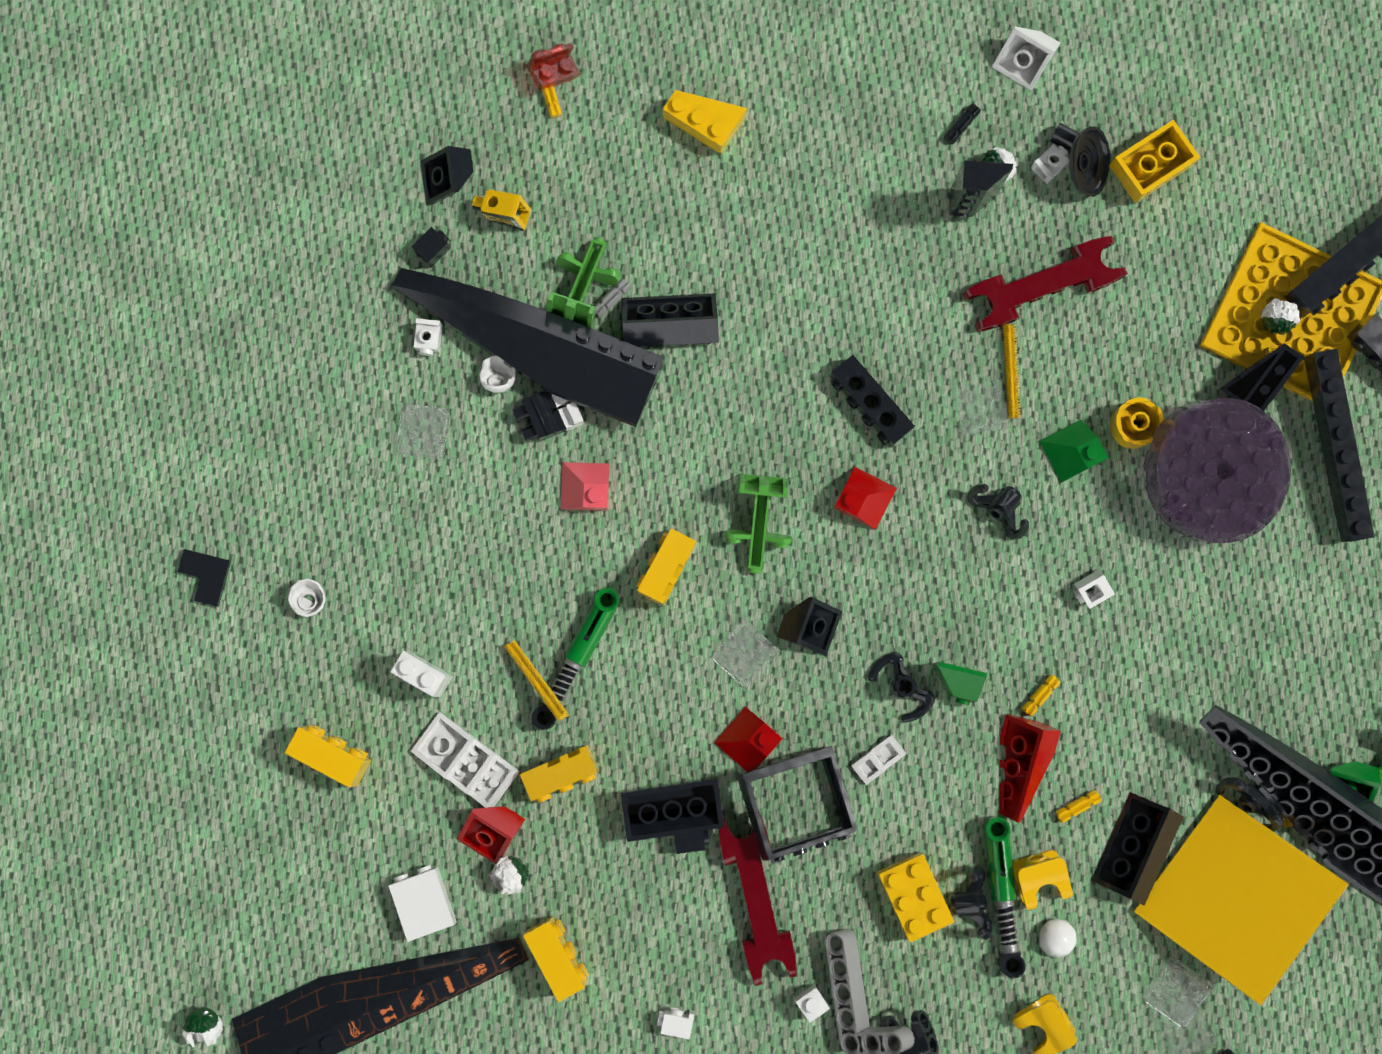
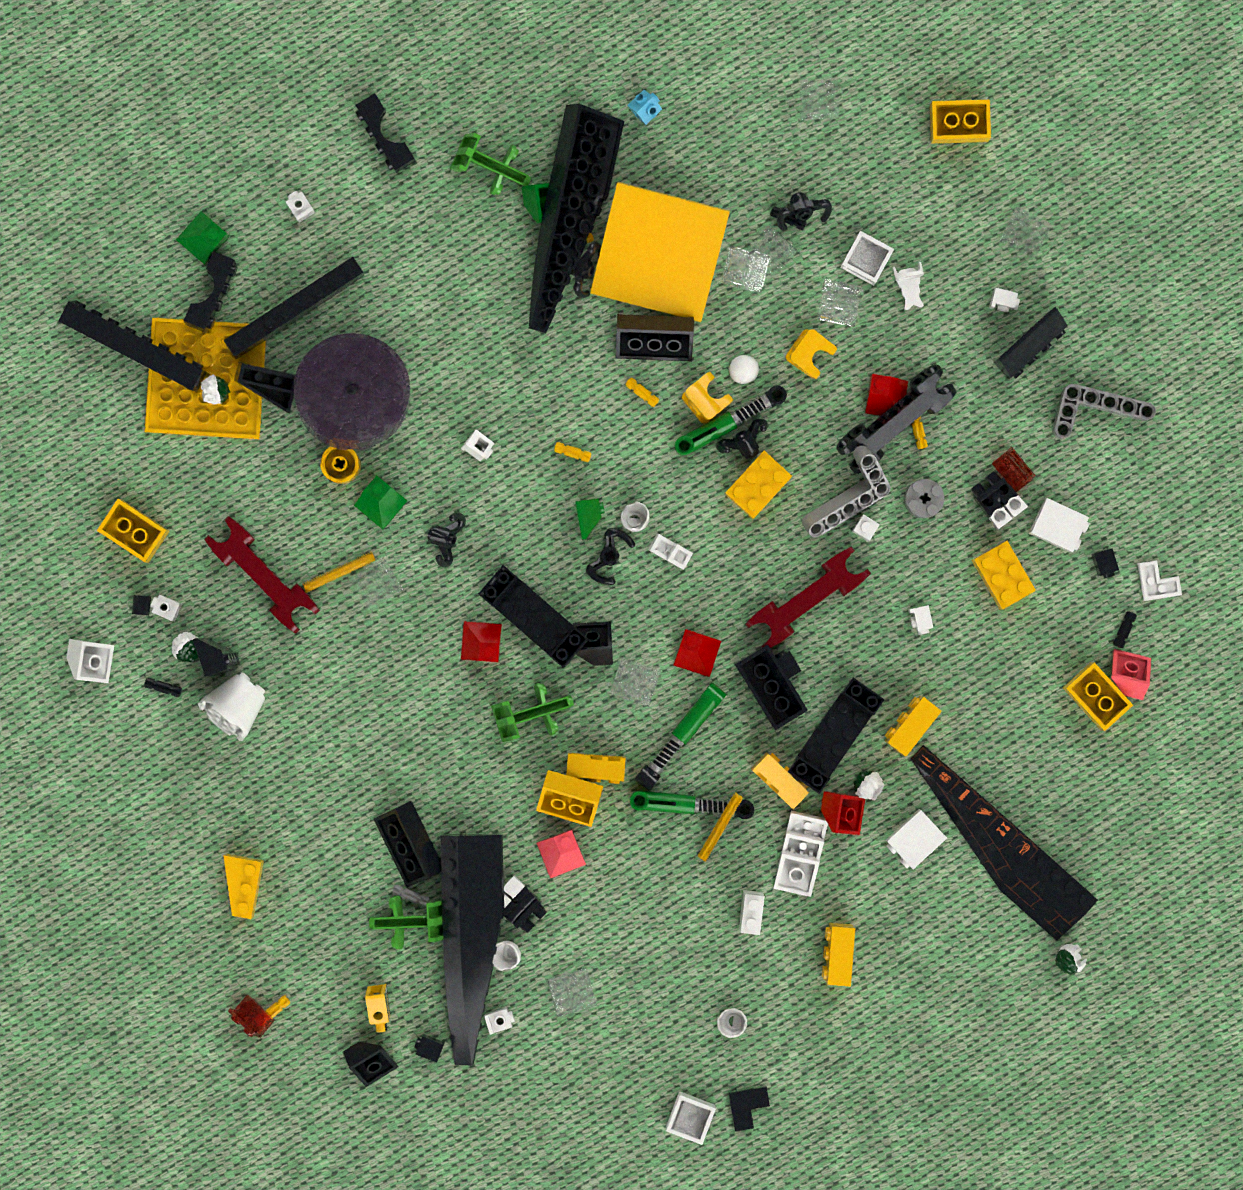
camera: 115 degrees left, 5 degrees up
(220, 504) = (690, 1118): none -> piece
(584, 861) = (835, 735): none -> black slope
(644, 521) = (569, 798): none -> yellow brick
(661, 682) = (681, 734): none -> piece
(838, 791) = (747, 571): black window -> none
(854, 370) = (389, 691): black brick -> none
(871, 568) = (533, 616): none -> black slope
(911, 190) = (234, 705): none -> white cone
(943, 743) = (635, 524): none -> white hair
(1027, 756) = (618, 444): red wedge -> none
(1089, 161) = (155, 579): black hat -> none

